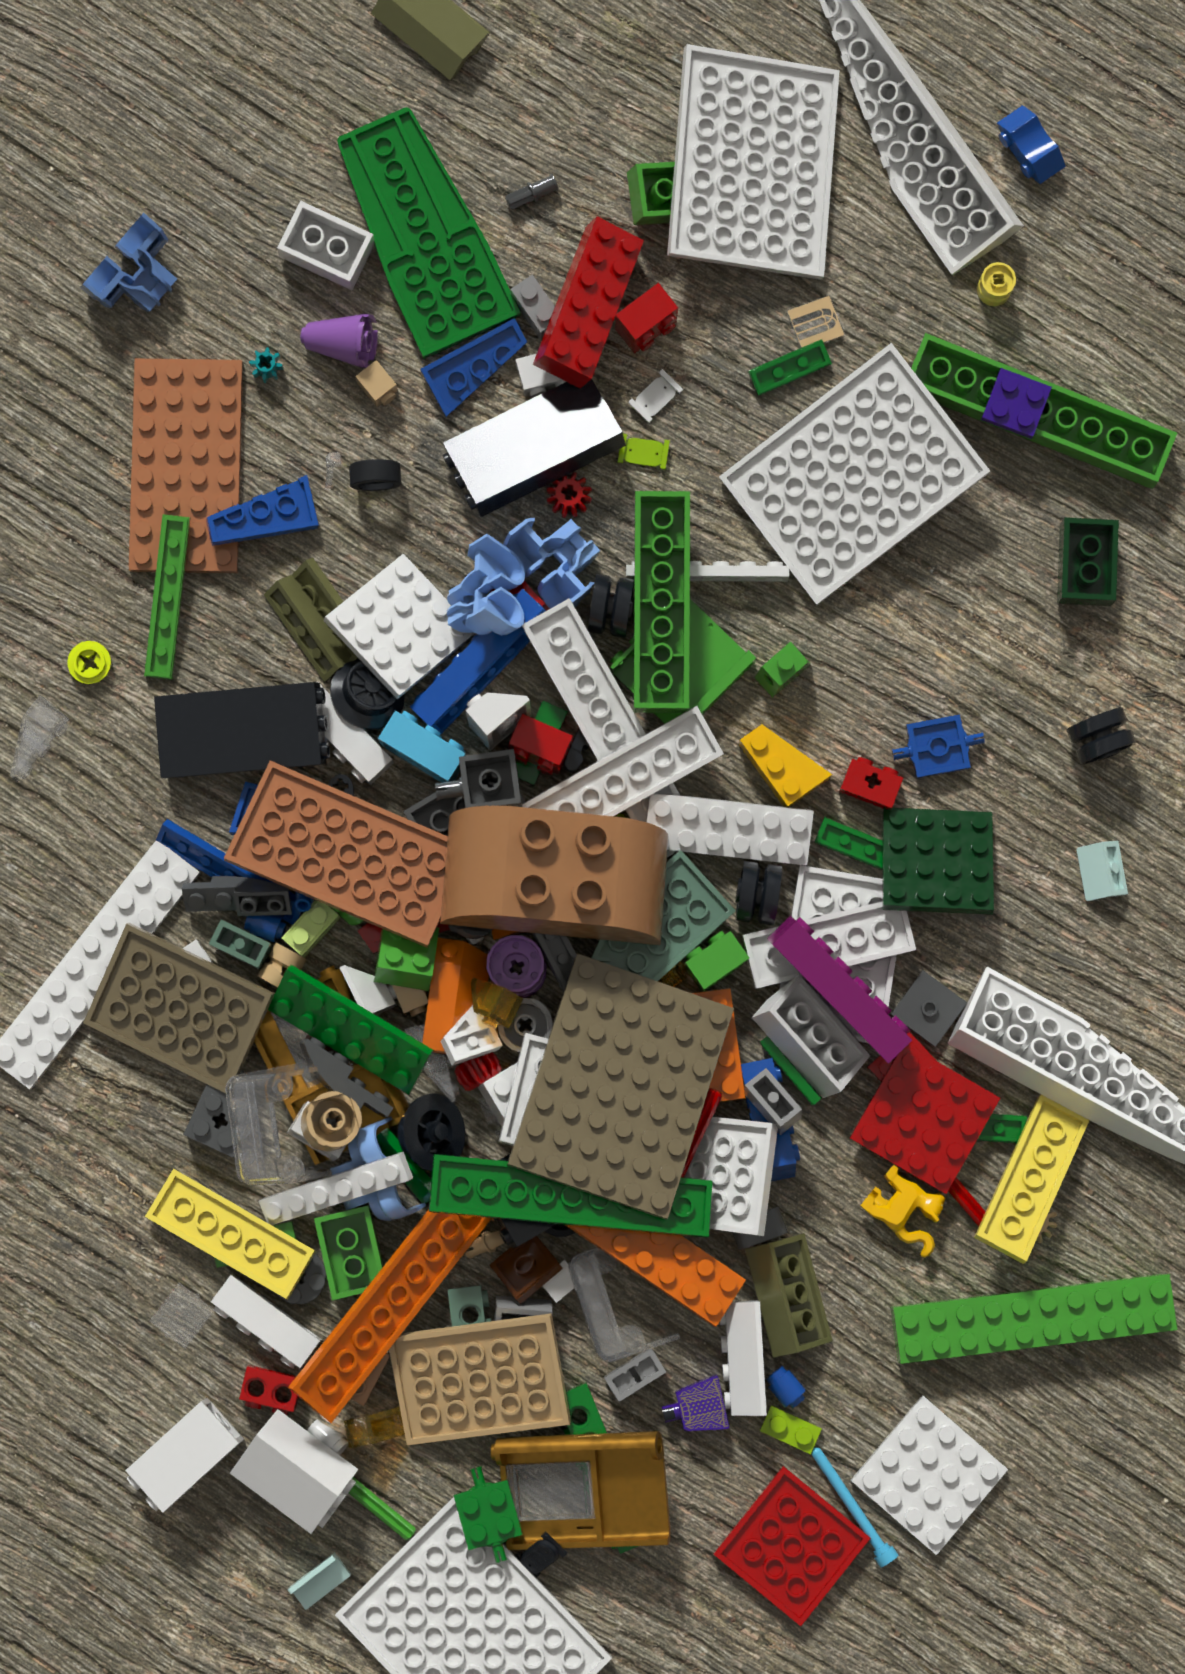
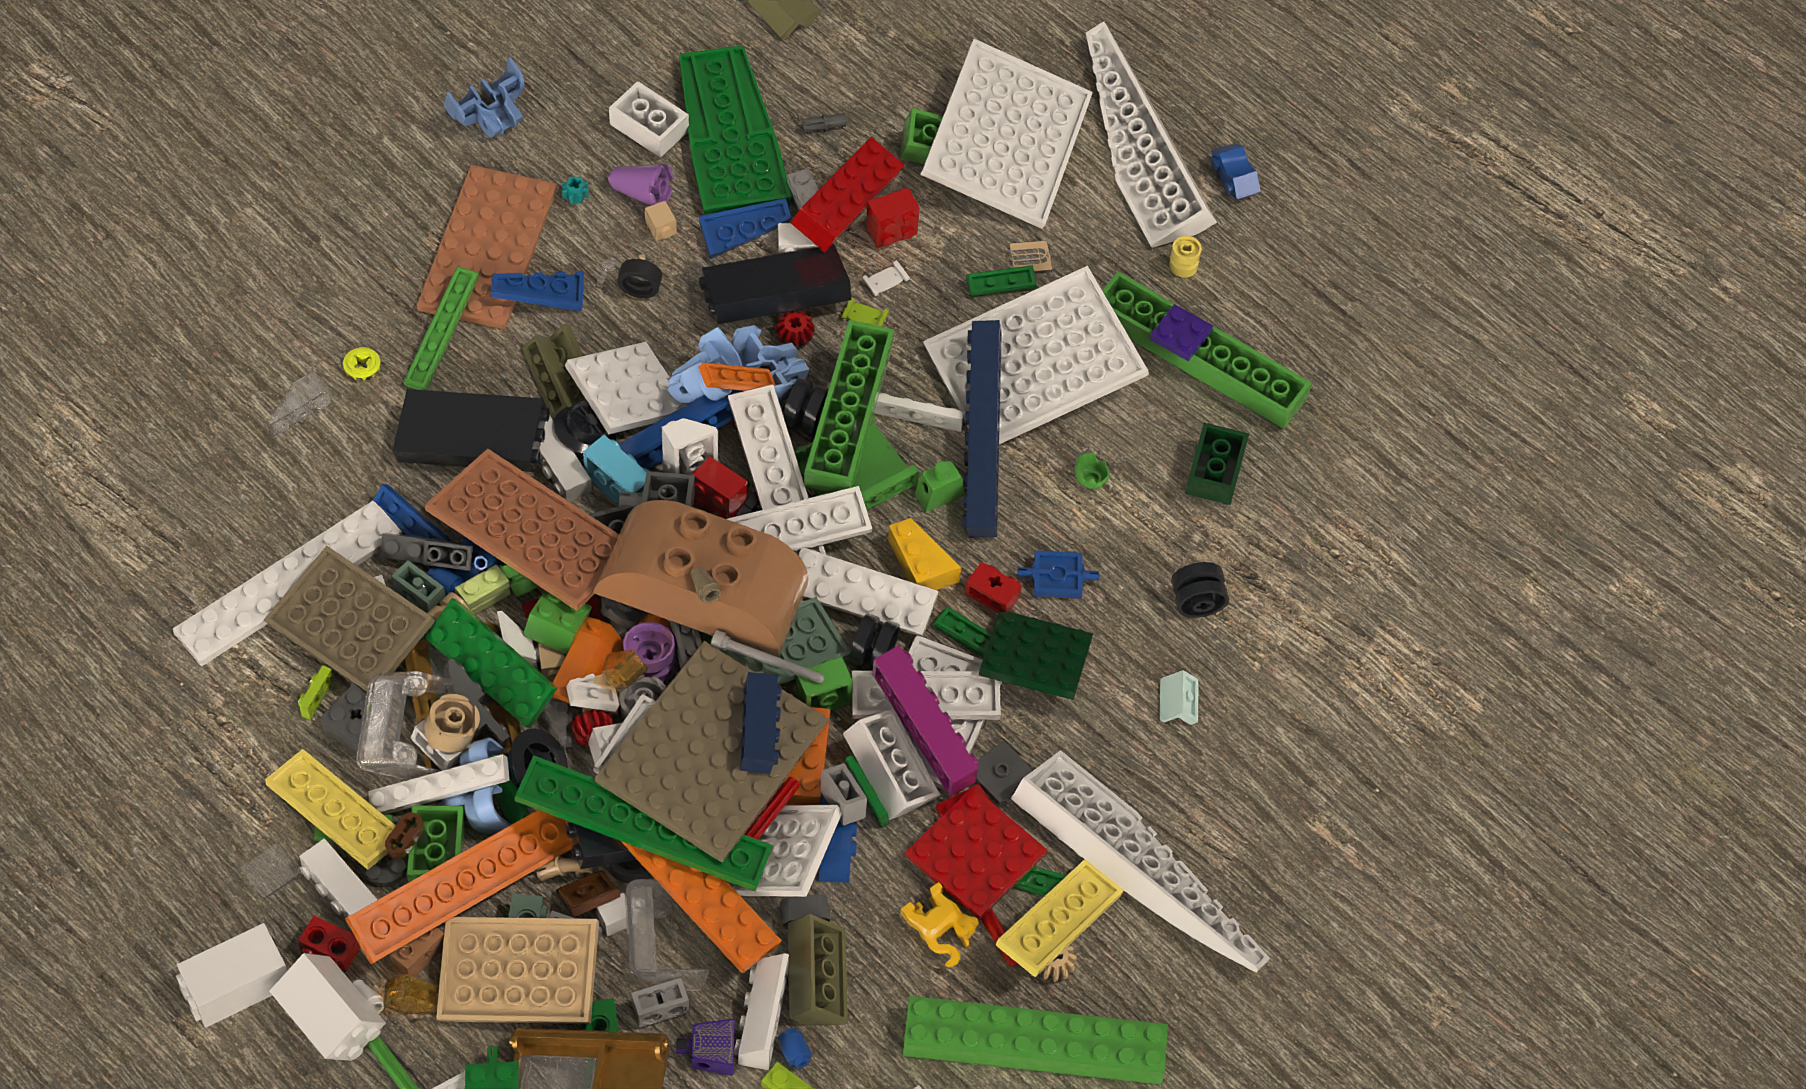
camera: 10 degrees right, 25 degrees down
(167, 1084) = (319, 686): none -> lime plate
(323, 1261) = (406, 836): none -> reddish brown beam
(528, 605) = (735, 376): none -> orange tile
(570, 914) = (706, 587): none -> dark tan cone
(597, 948) = (722, 642): none -> light grey piece
(665, 1048) = (759, 723): none -> dark blue brick
(816, 582) = (983, 429): none -> dark blue brick
(948, 605) = (1090, 471): none -> bright green hair

